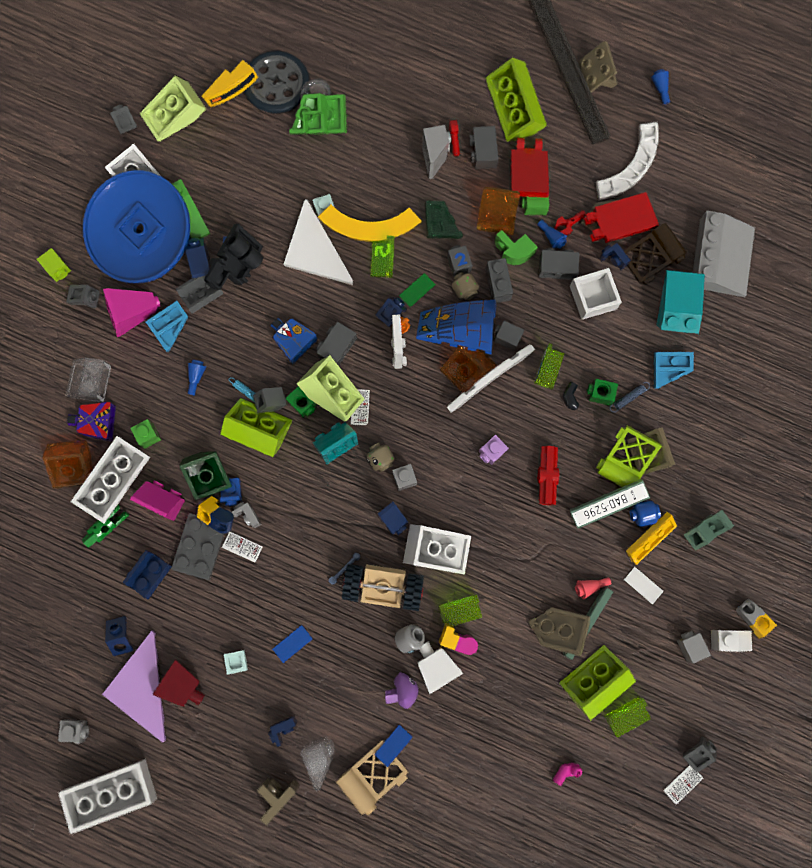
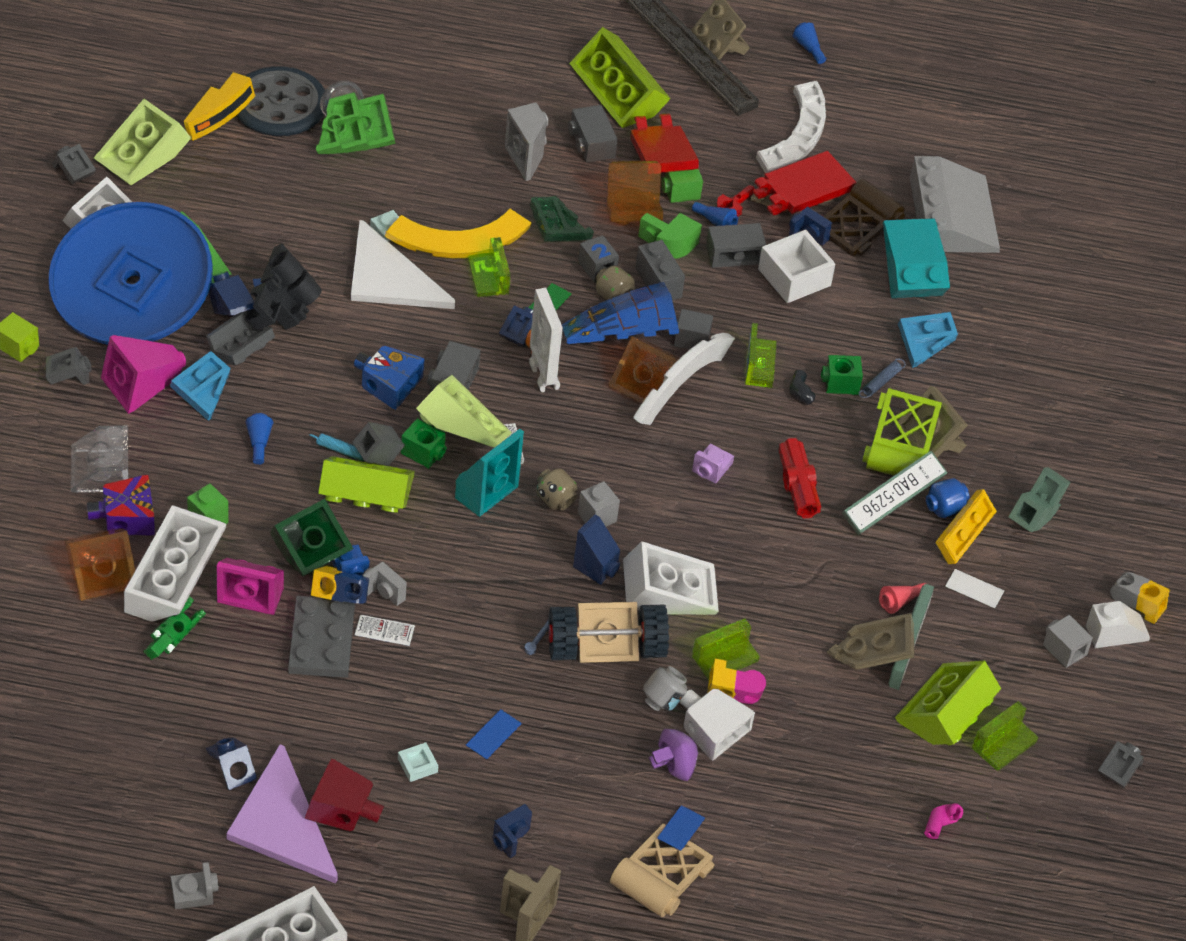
camera: 15 degrees left, 30 degrees down
(147, 574) = (255, 675): dark blue bracket -> none
(317, 759) = (575, 846): clear slope -> none
(453, 129) = (550, 133): red bar -> none
(683, 784) = (1111, 810): white sticker -> none

